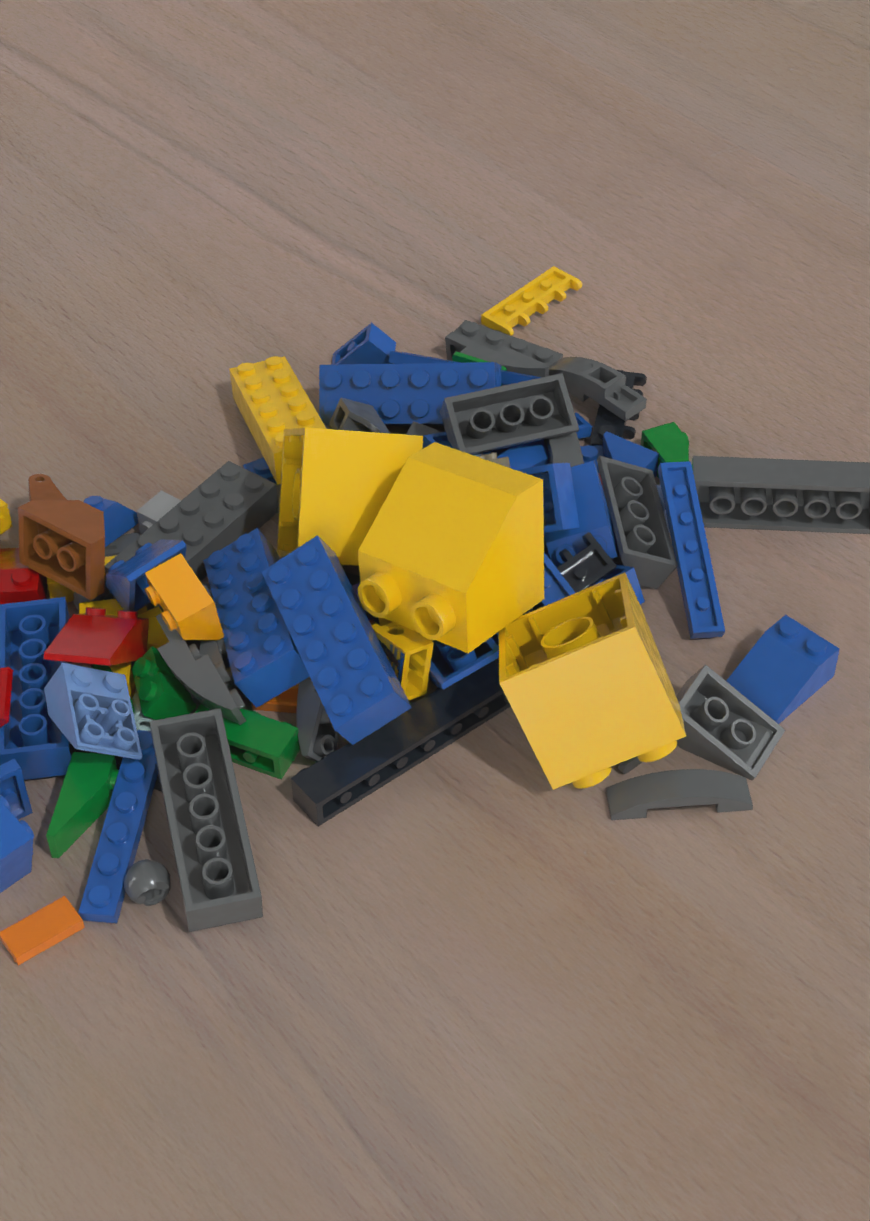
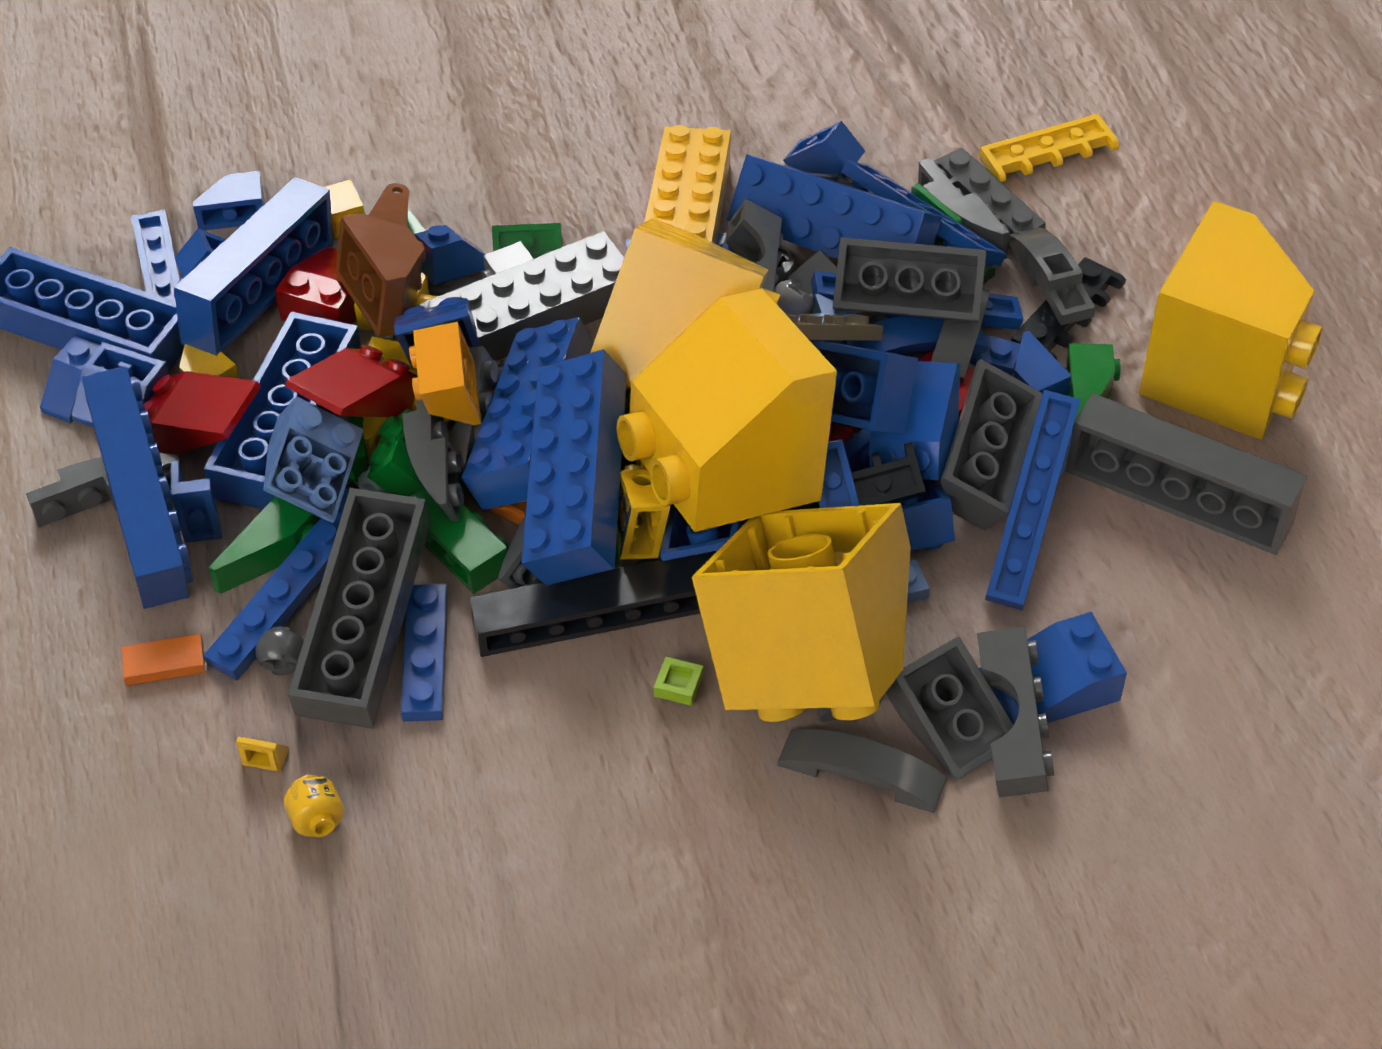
camera: 25 degrees right, 5 degrees up
(174, 483) = (536, 238): none -> green panel
(180, 973) = (262, 754): none -> yellow slope
(256, 997) = (313, 804): none -> yellow head
(274, 843) = (424, 653): none -> blue plate
(497, 783) = (678, 681): none -> lime plate
(765, 377) = (1232, 327): none -> yellow slope
(799, 742) = (1019, 754): none -> dark grey arch

